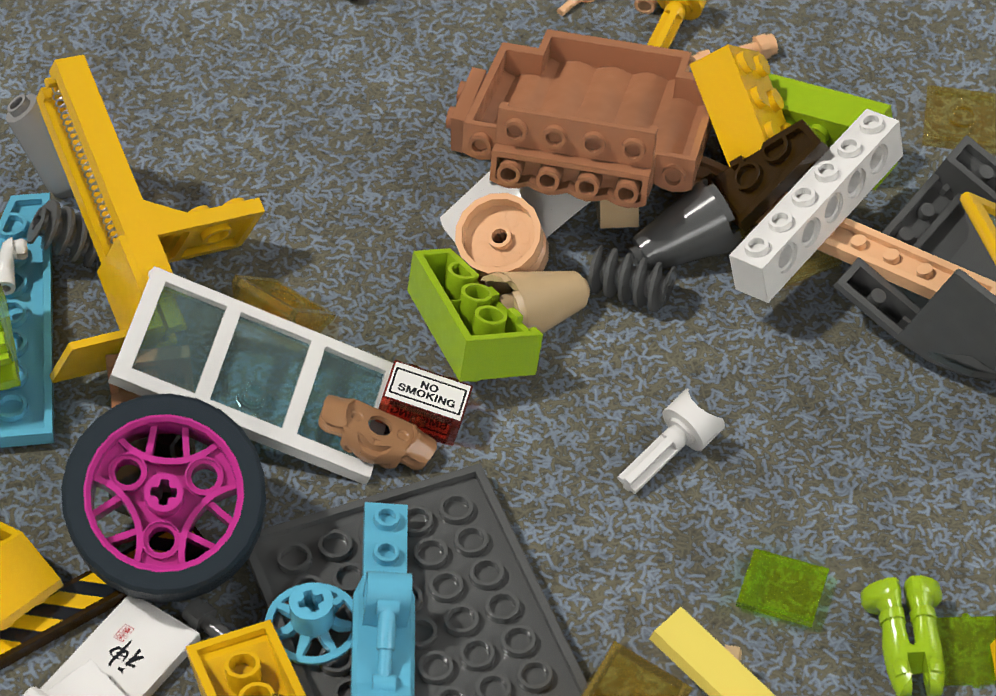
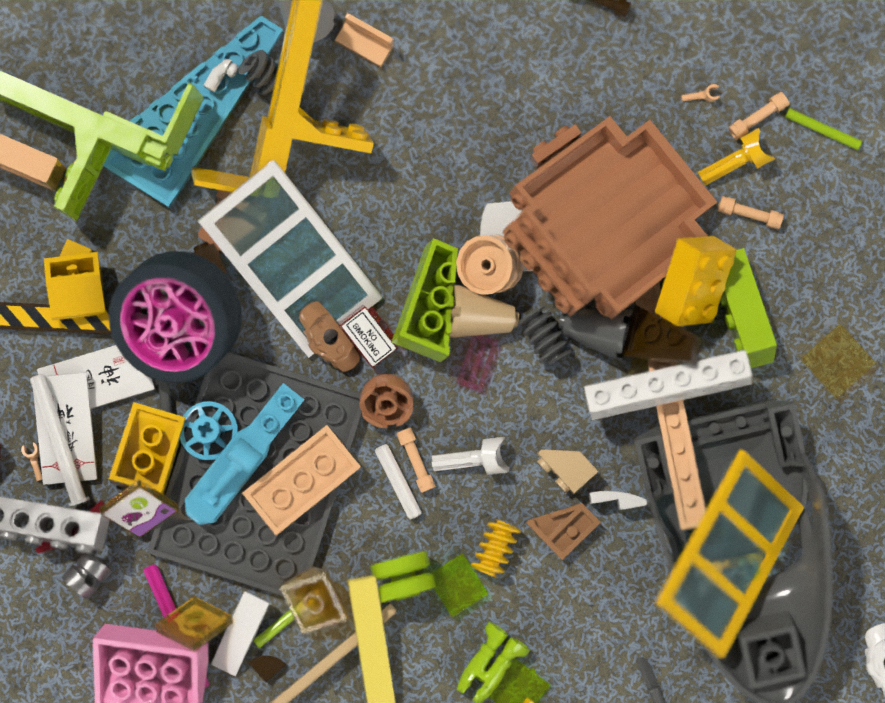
camera: 40 degrees right, 35 degrees up
(159, 147) = (365, 40): none -> light nougat panel
(281, 301) = (349, 209): clear yellow slope -> none
(484, 591) = (301, 480): none -> light nougat plate
(511, 443) = (386, 401): none -> nougat cylinder
(570, 481) = (406, 439): none -> light nougat bar
(587, 382) = (470, 384): none -> clear pink tile
(603, 531) = (398, 481): none -> white axle
(715, 595) = (403, 577): none -> lime wheel
(784, 382) = (569, 466): none -> tan slope
(790, 513) = (495, 548): none -> yellow piece
(845, 445) = (564, 528): none -> medium nougat wing
(879, 371) = (623, 499): none -> white slope

